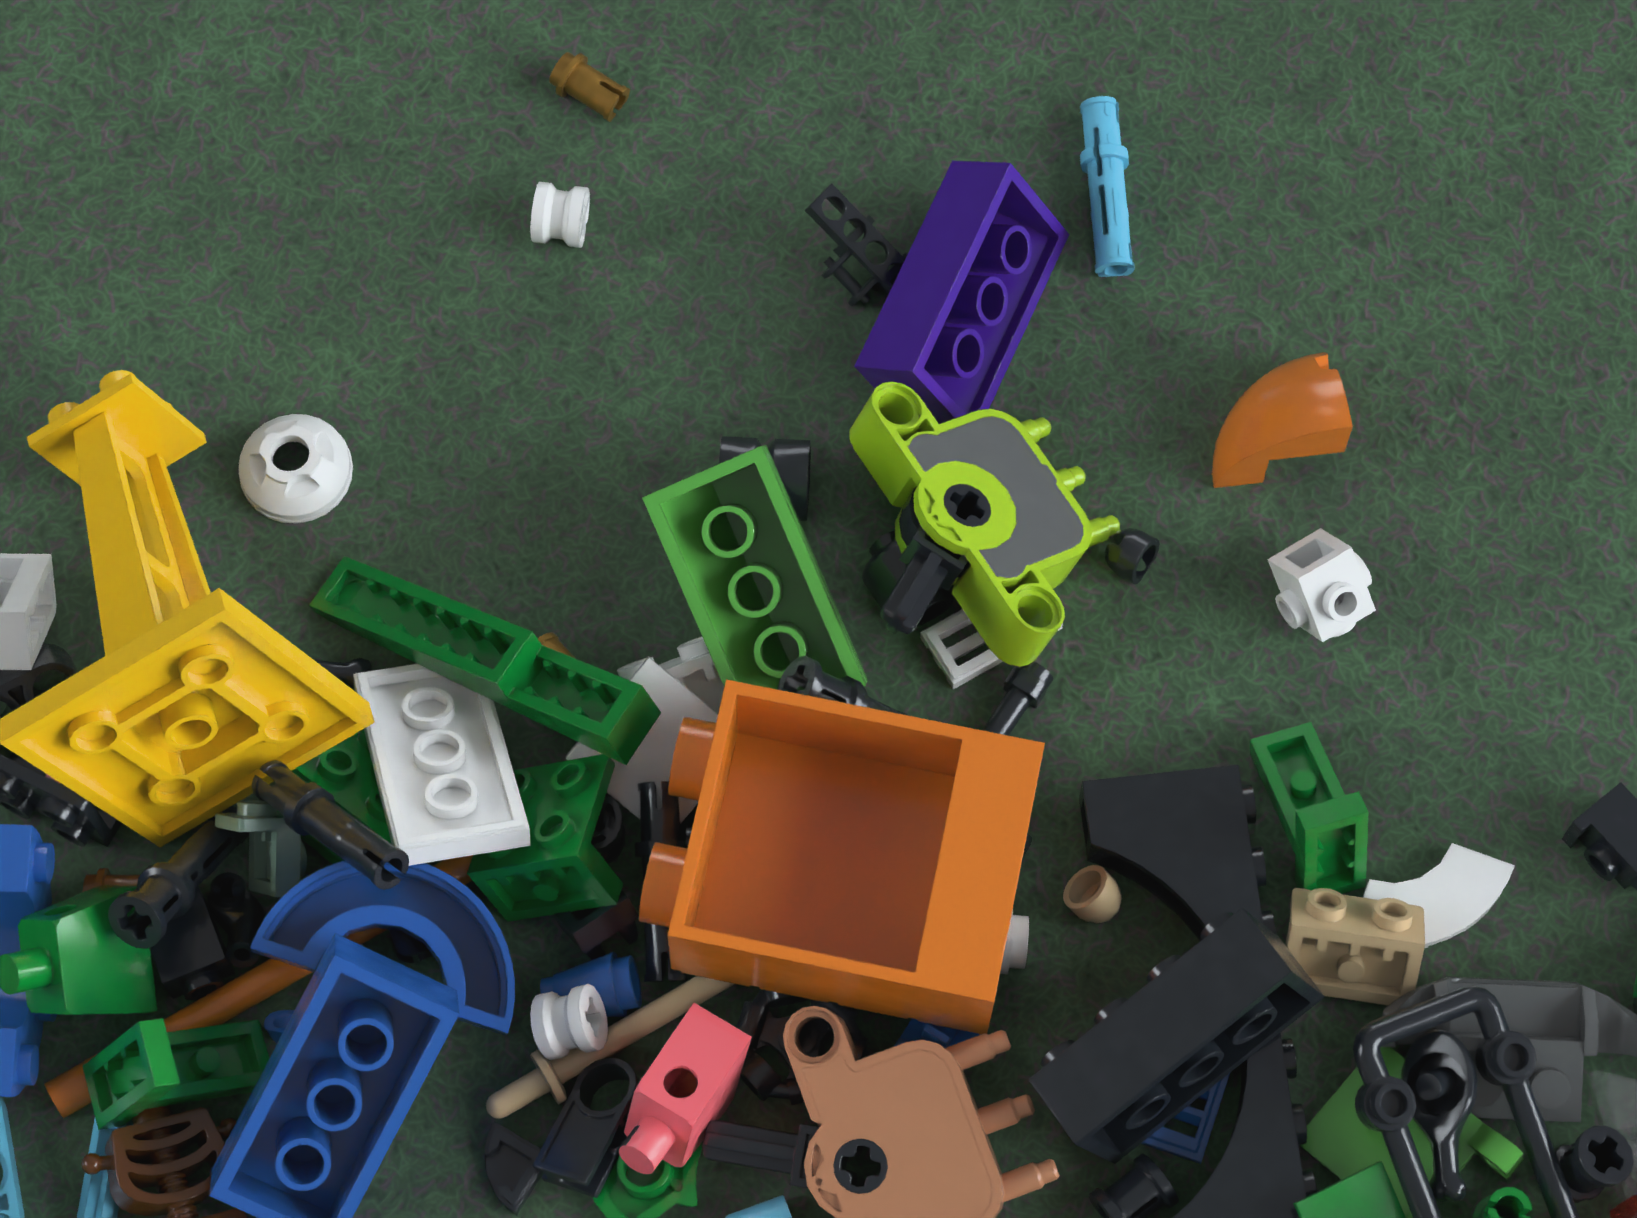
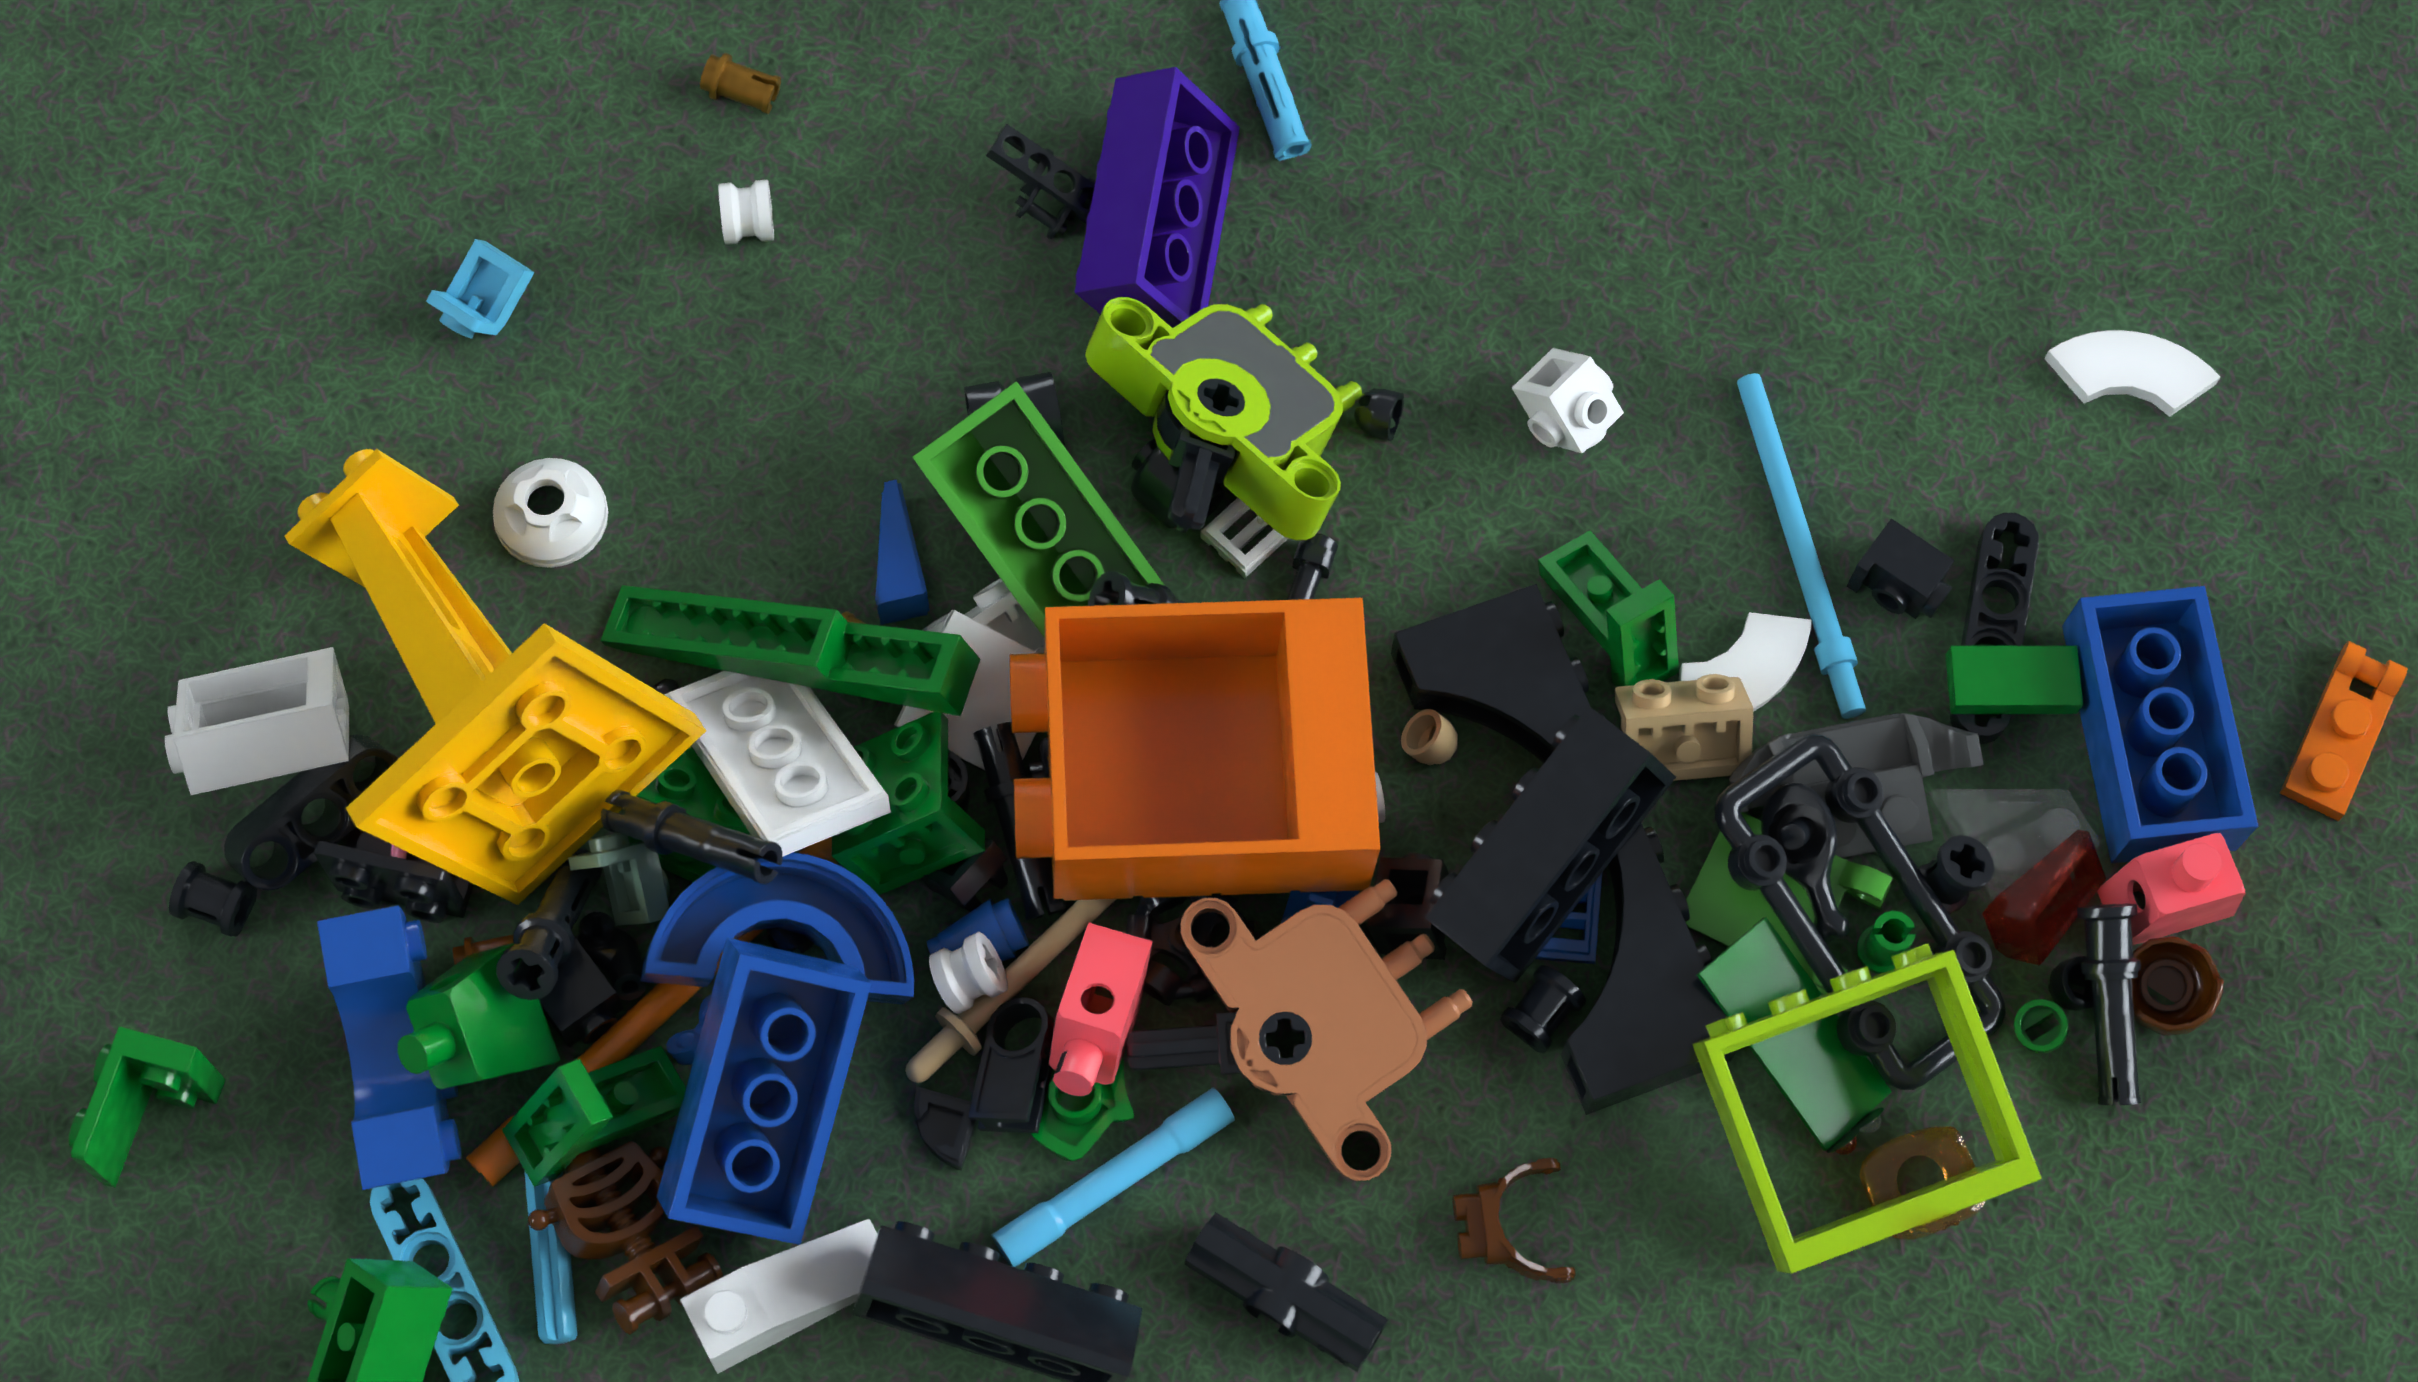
camera: 20 degrees left, 0 degrees up
(286, 238) = (482, 291): none -> medium azure bracket
(611, 609) = (900, 579): none -> blue slope
(1031, 1037) = (1401, 920): none -> black brick
(1283, 415) = (1491, 250): orange brick -> none
(1529, 903) = (1834, 652): none -> medium azure bar

